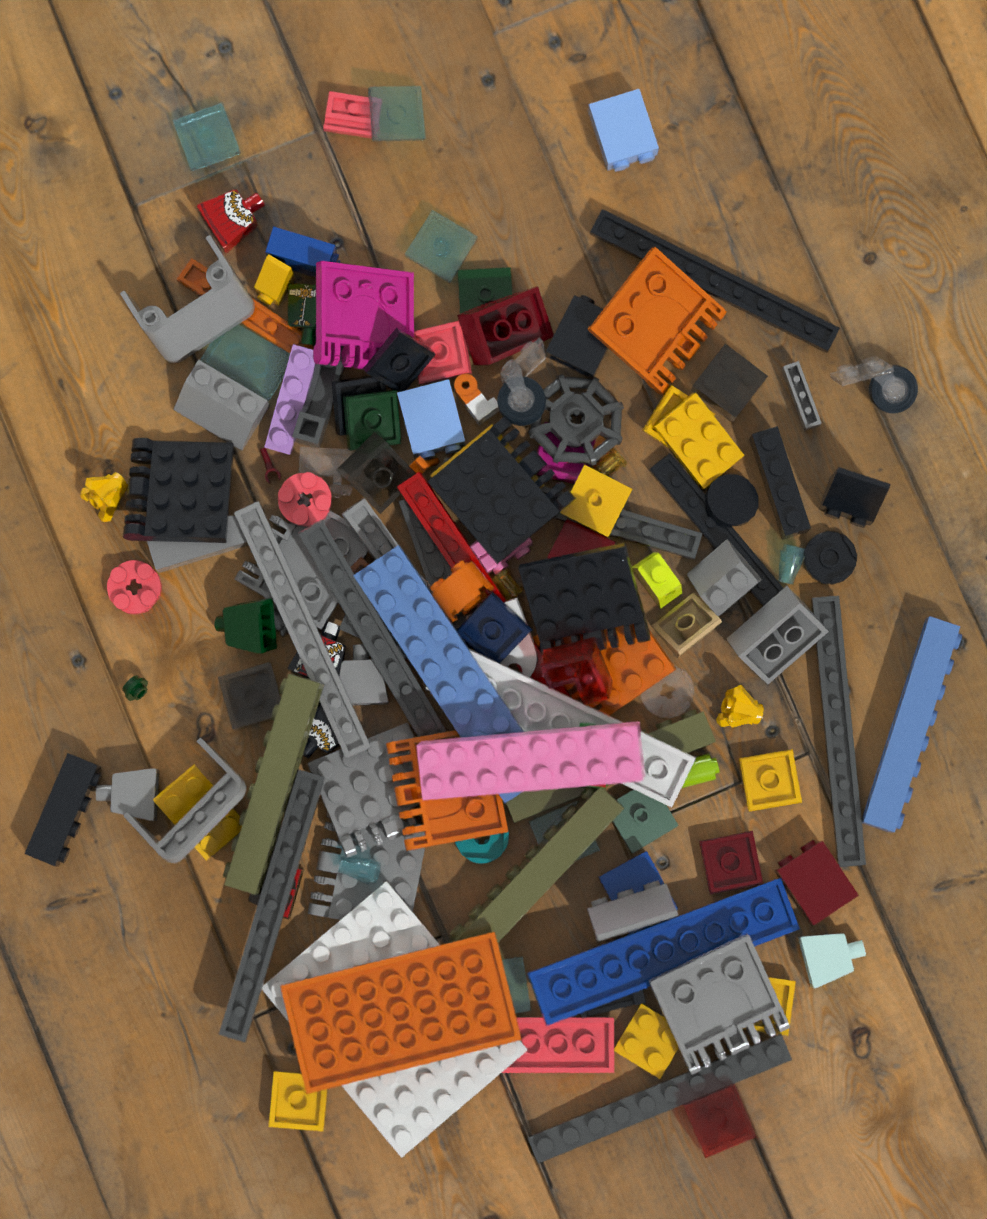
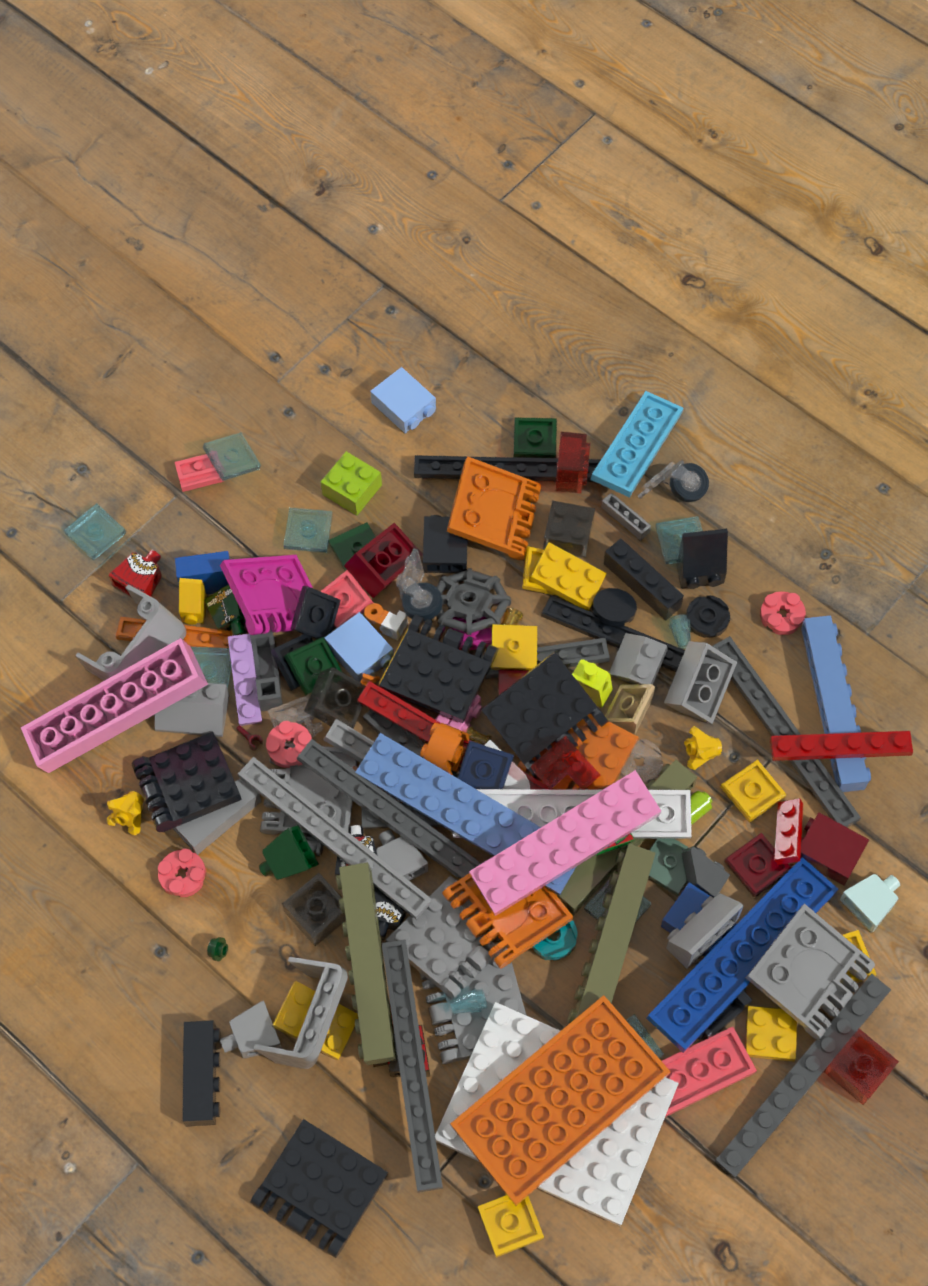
camera: 25 degrees left, 20 degrees down
(135, 975) = (323, 1184): none -> black hinge
(137, 373) = (114, 706): none -> bright pink brick
(514, 211) = (351, 483): none -> lime brick
(666, 849) = (703, 872): none -> dark grey slope
(750, 248) = (535, 437): none -> dark green plate
(765, 313) = (572, 462): none -> clear red brick
(780, 845) = (788, 831): none -> plate
(848, 449) = (671, 534): none -> clear light blue tile
(859, 313) = (637, 444): none -> medium azure plate
(886, 781) = (841, 745): none -> red plate
(928, 586) = (787, 601): none -> coral plate

